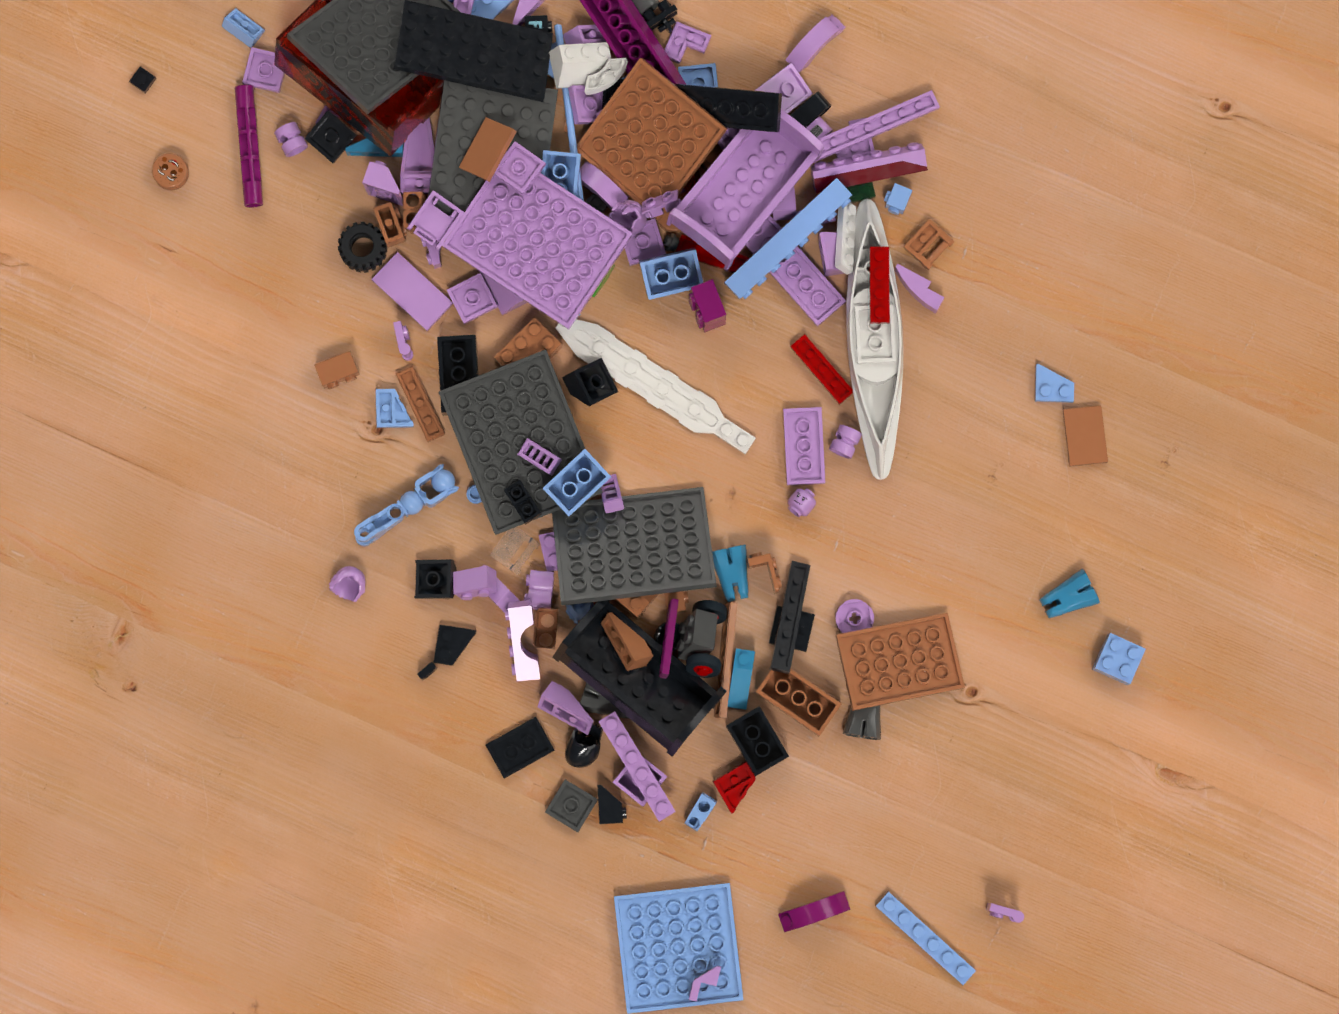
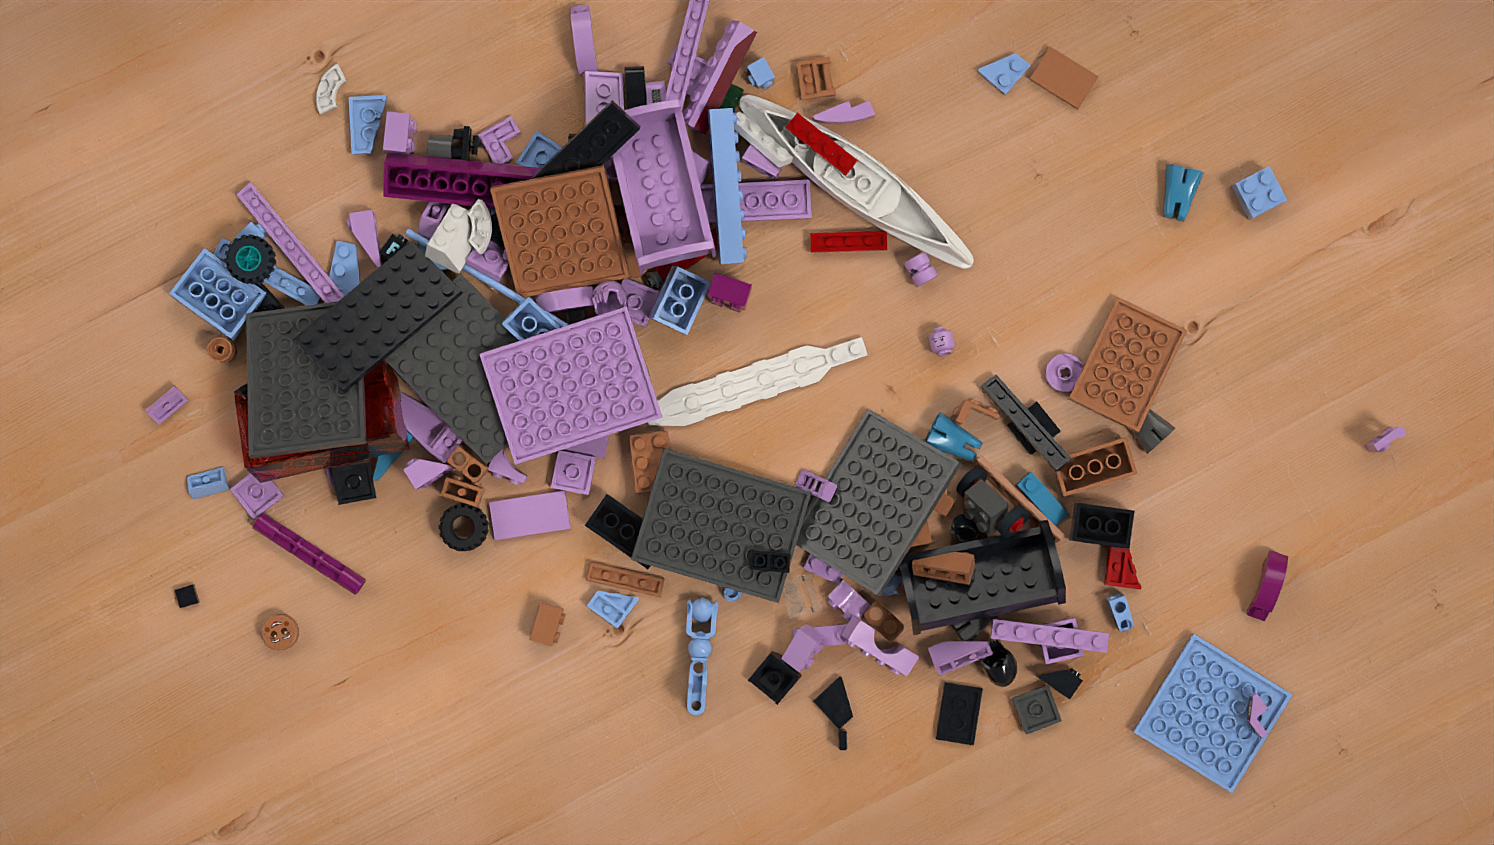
camera: 45 degrees left, 5 degrees up
(290, 138) = (330, 516): lavender wheel -> none
(348, 583) = (724, 747): lavender hair -> none
(402, 336) = (560, 551): lavender plate -> none
(432, 222) = (490, 457): lavender container -> none
(487, 149) = (467, 368): nougat tile -> none
(519, 168) = (502, 354): lavender plate -> none
(553, 466) = (754, 524): lavender slope -> none
(576, 482) = (789, 507): light blue brick -> none
(590, 383) = (716, 432): black slope -> none
(653, 206) = (618, 272): lavender hinge -> none
(668, 638) = (970, 532): magenta tile -> none
(804, 446) = (898, 304): lavender plate -> none
(925, 938) = (1354, 515): light blue plate -> none

